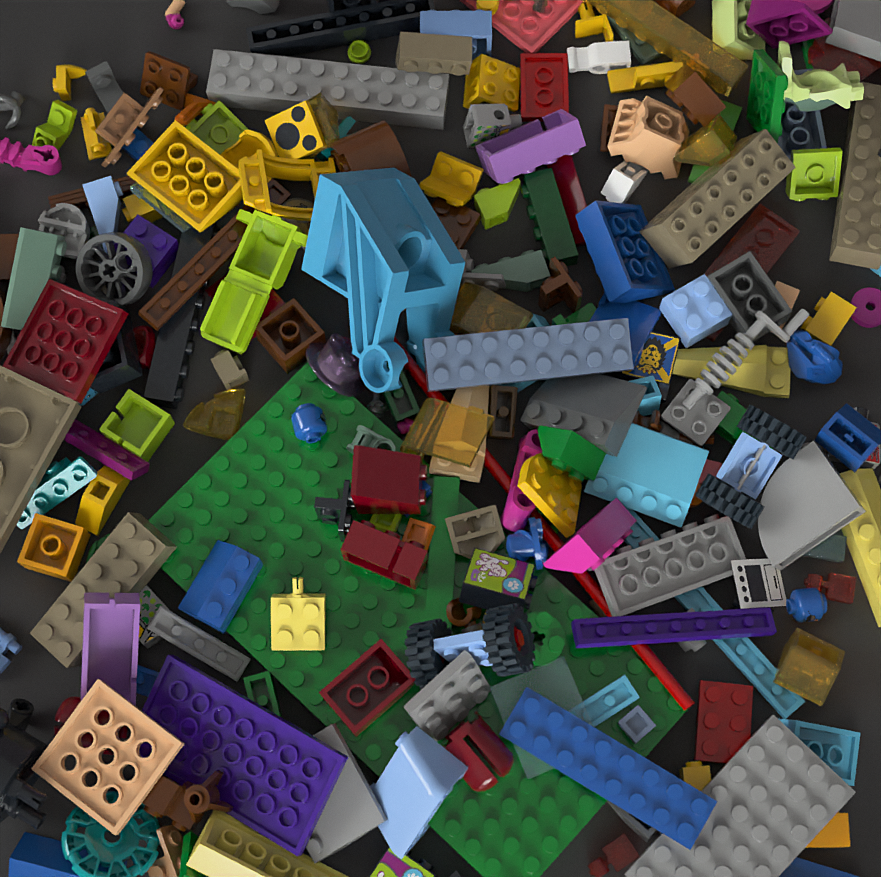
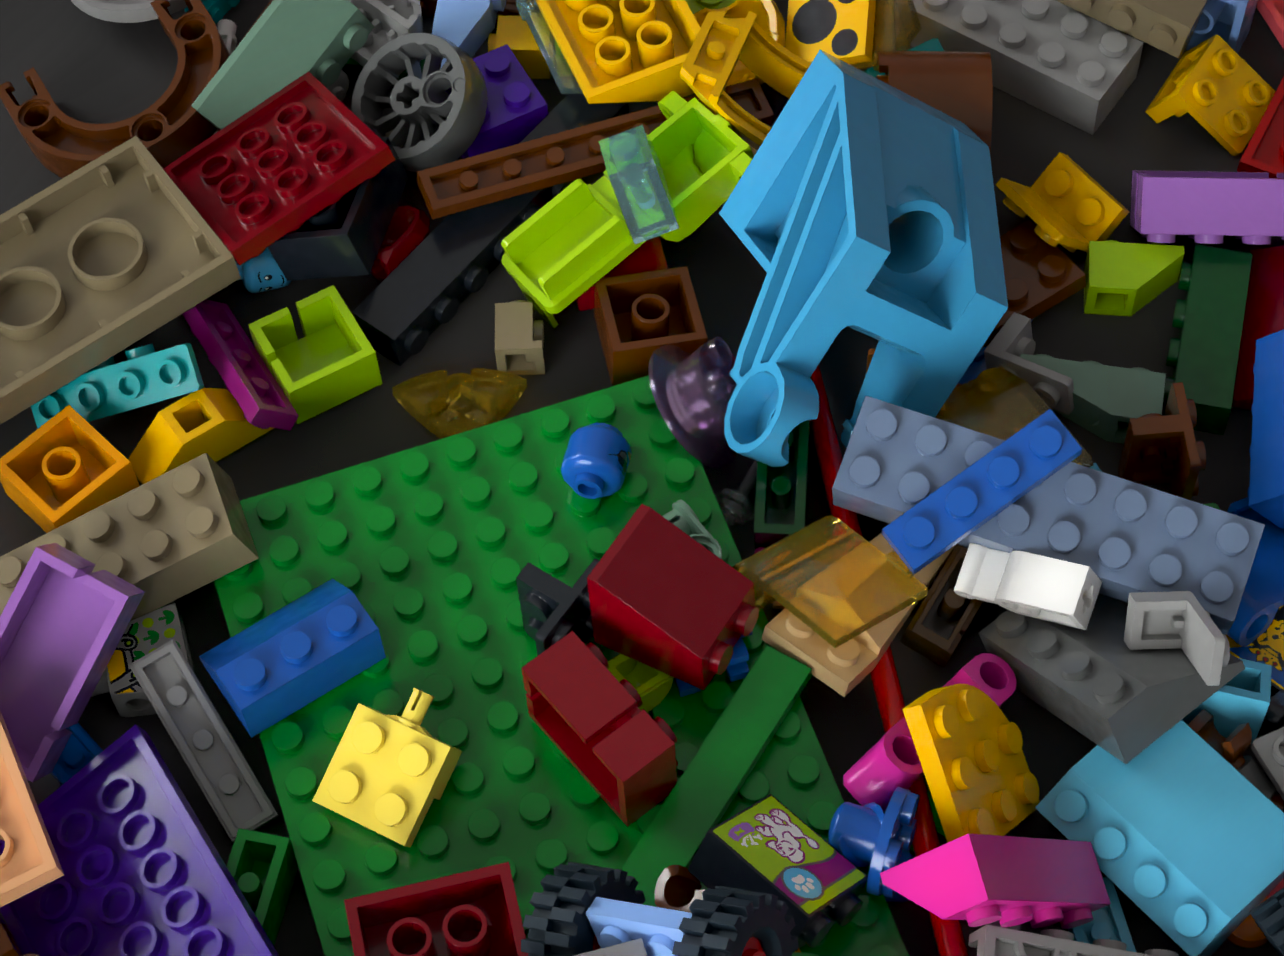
camera: 30 degrees right, 15 degrees down
(255, 271) = (639, 184): none -> clear light blue slope
(419, 532) = (691, 726): orange tile -> none
(475, 530) = (793, 765): dark tan slope -> none
(488, 122) = (1176, 140): light grey torso -> none
(499, 362) = (981, 491): none -> blue plate
(535, 392) = (1030, 585): none -> white piece
(570, 453) = (1042, 718): green slope -> none
(610, 381) = (1177, 622): none -> light grey bracket

